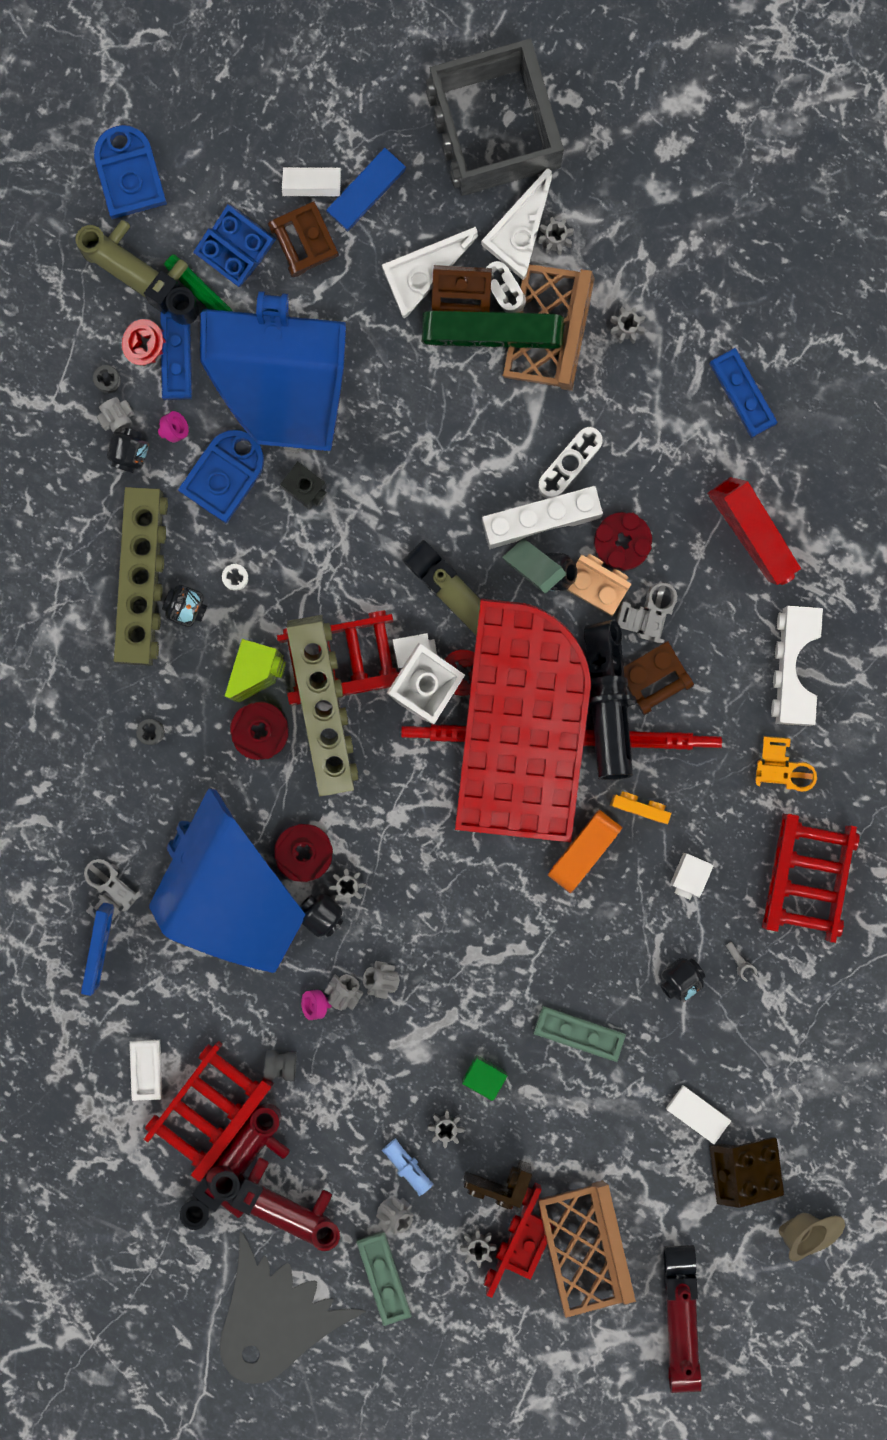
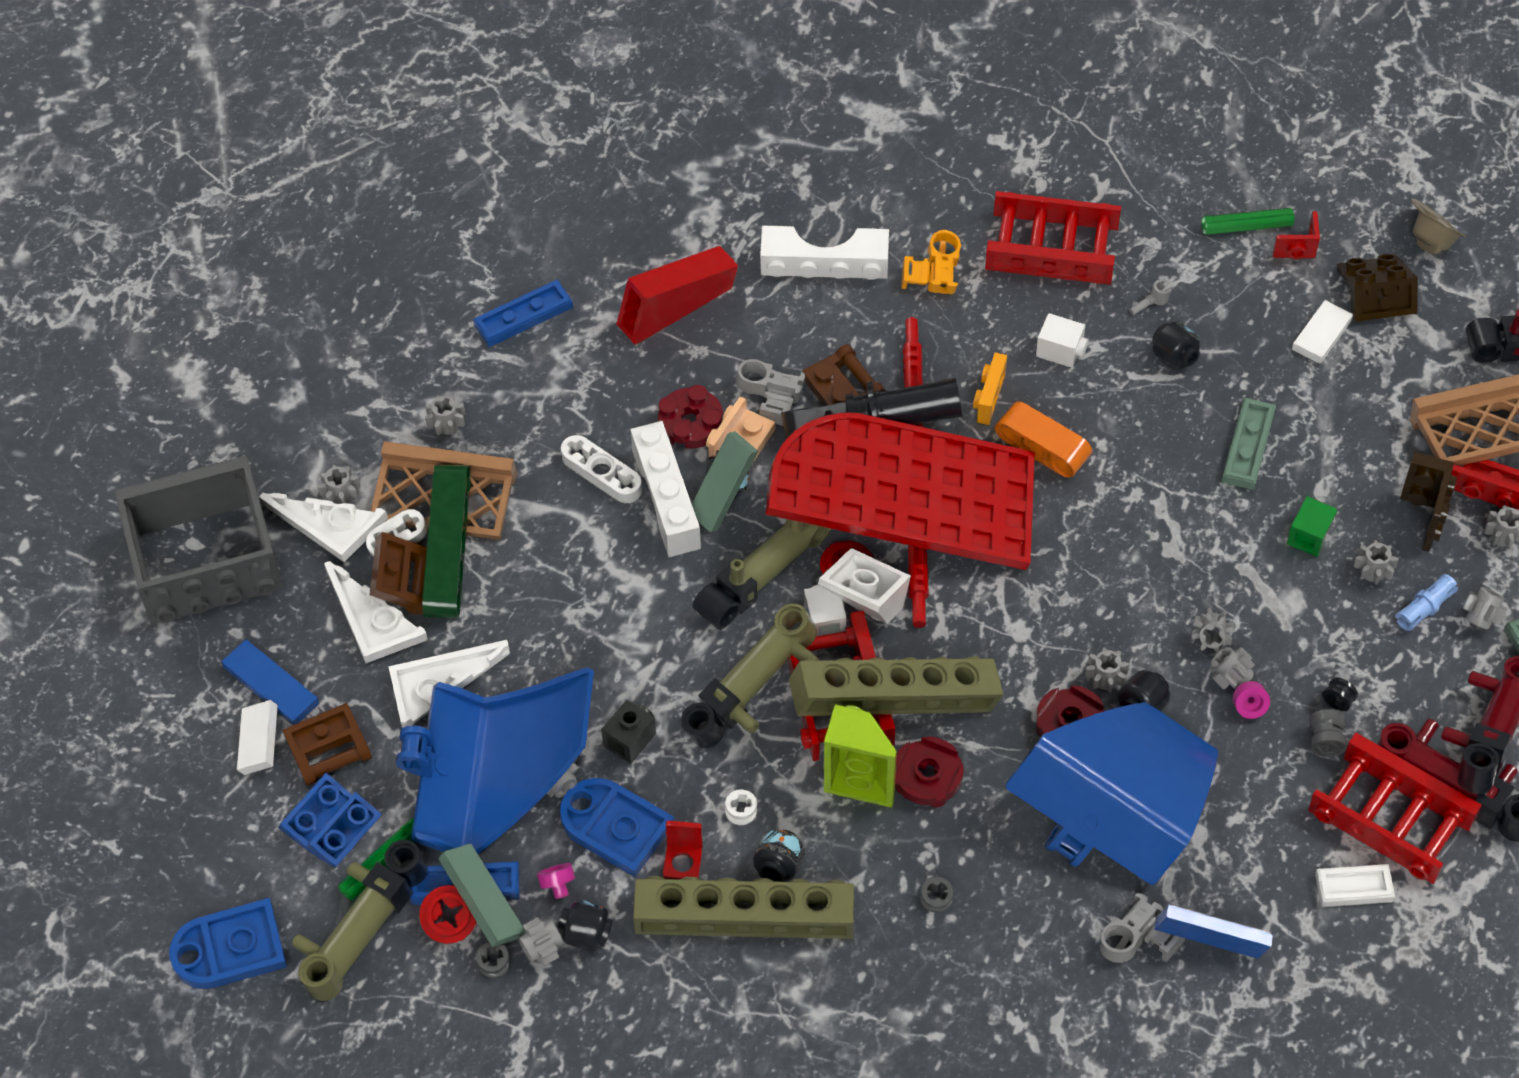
camera: 90 degrees left, 30 degrees down
(153, 367) = (481, 895): none -> sand green tile
(204, 529) = (683, 839): none -> red bracket
(318, 1080) = (1340, 694): none -> black bush
(324, 567) = (727, 698): none -> olive piece
(363, 327) = (415, 679): none -> white wing
(790, 1106) = (1299, 245): none -> red bracket
(827, 1060) = (1247, 221): none -> green axle

